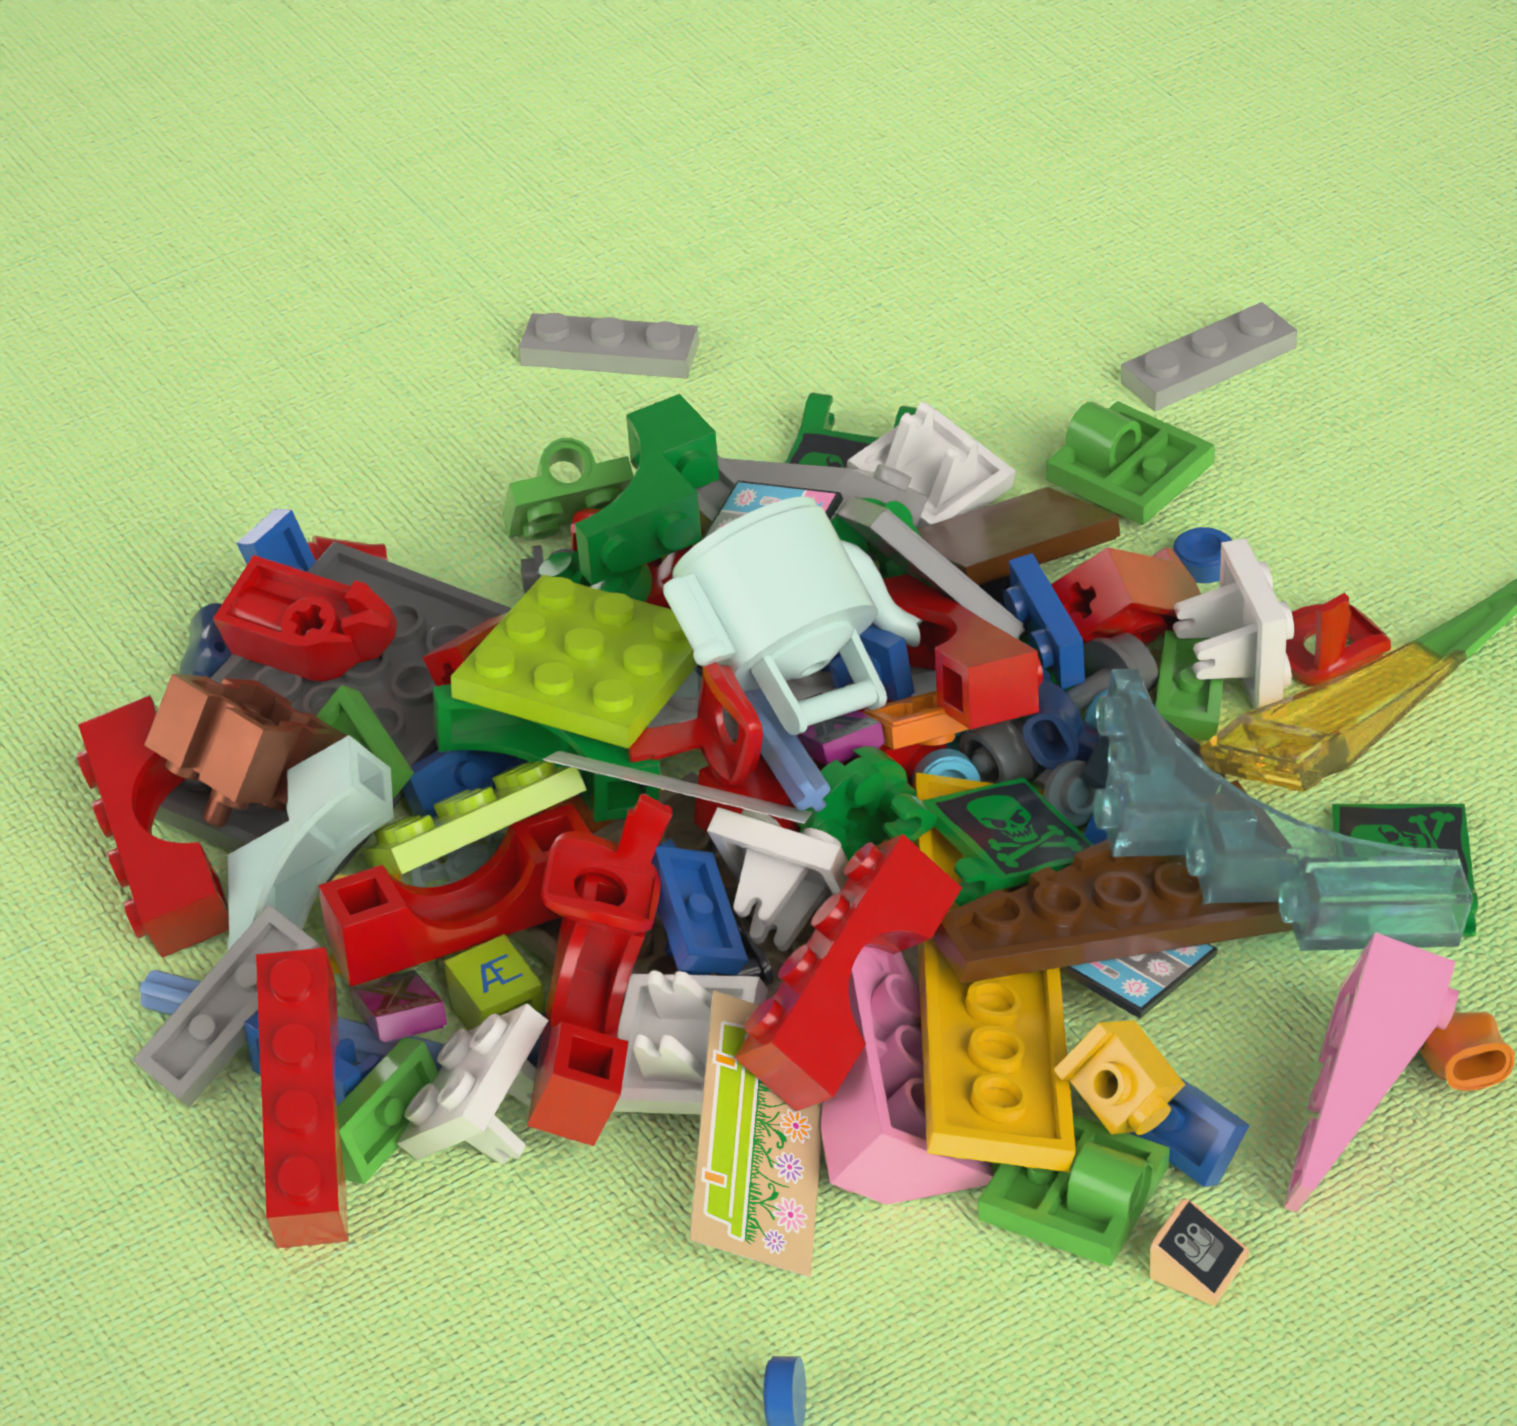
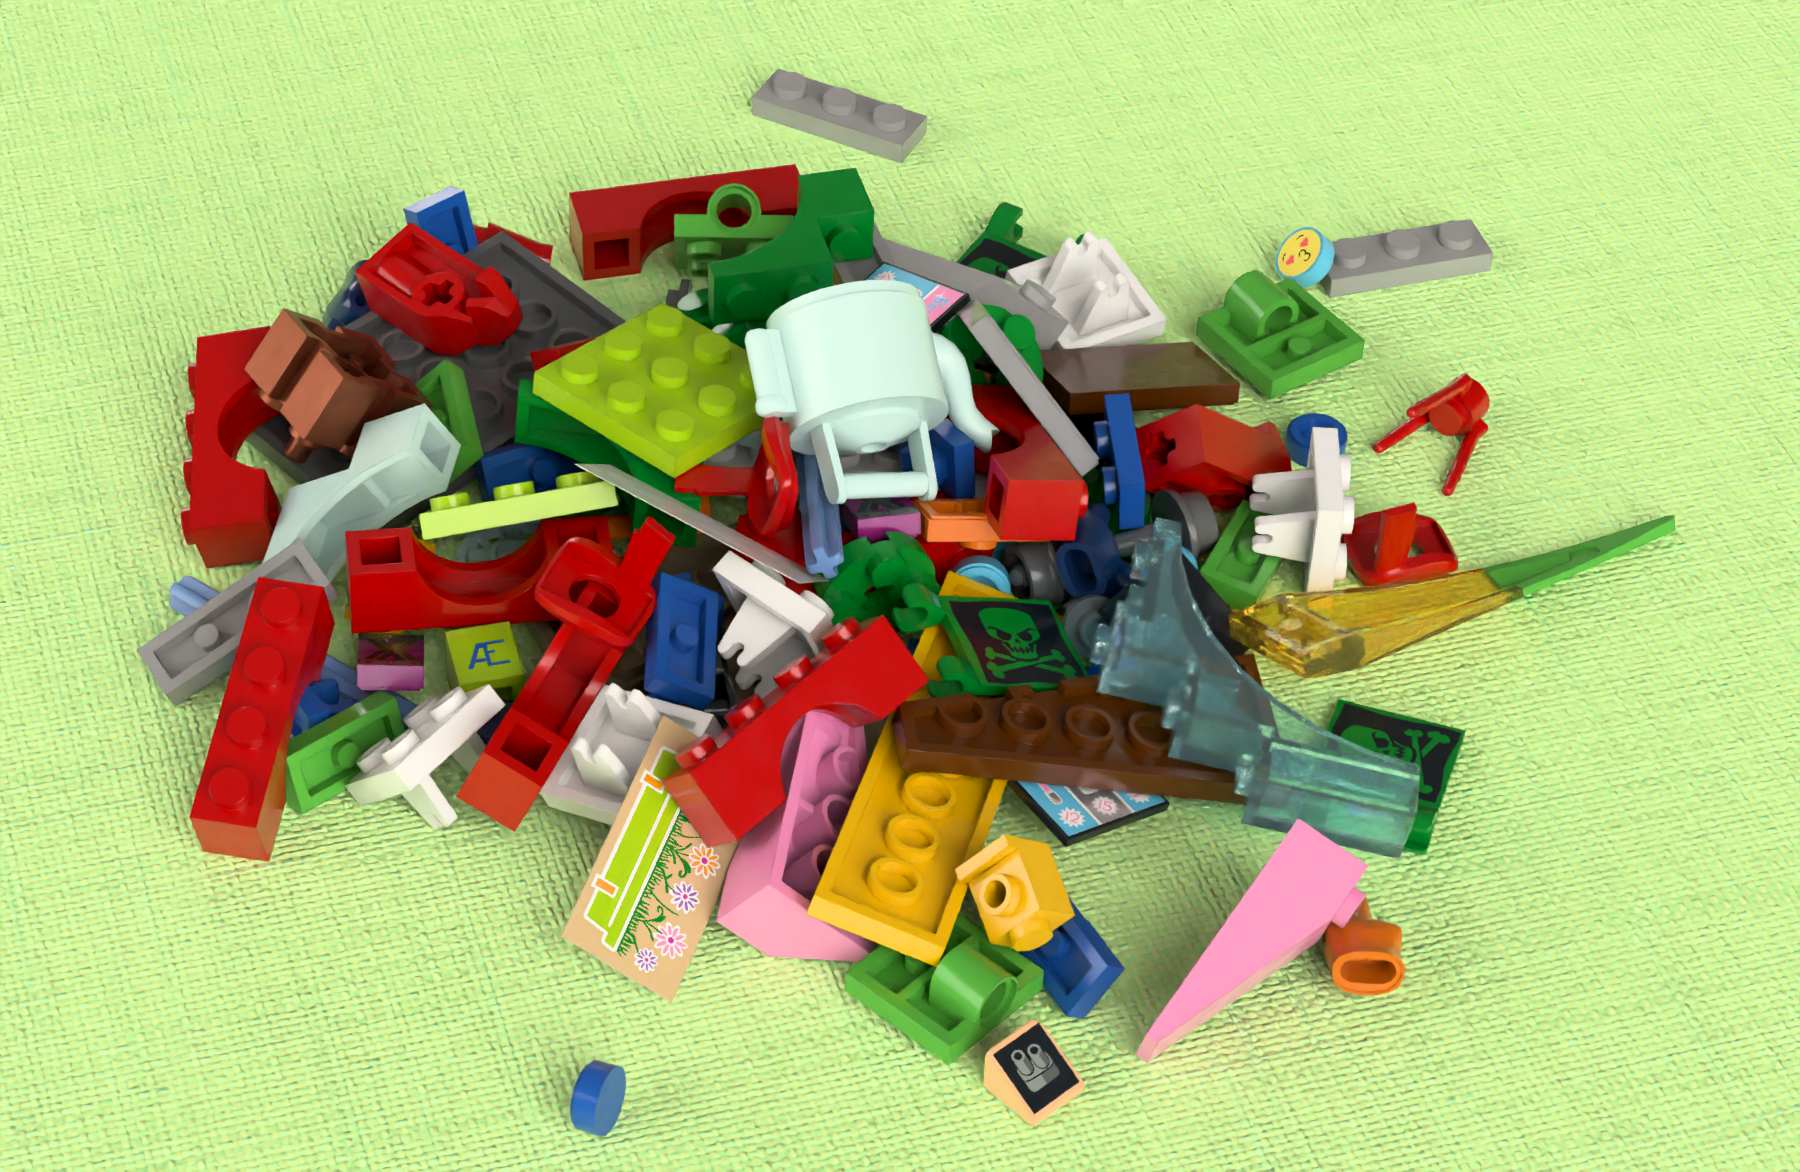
camera: 10 degrees right, 0 degrees up
(442, 507) = (622, 225): none -> red arch
(1121, 376) = (1305, 257): none -> tile
(1324, 495) = (1452, 412): none -> red plant

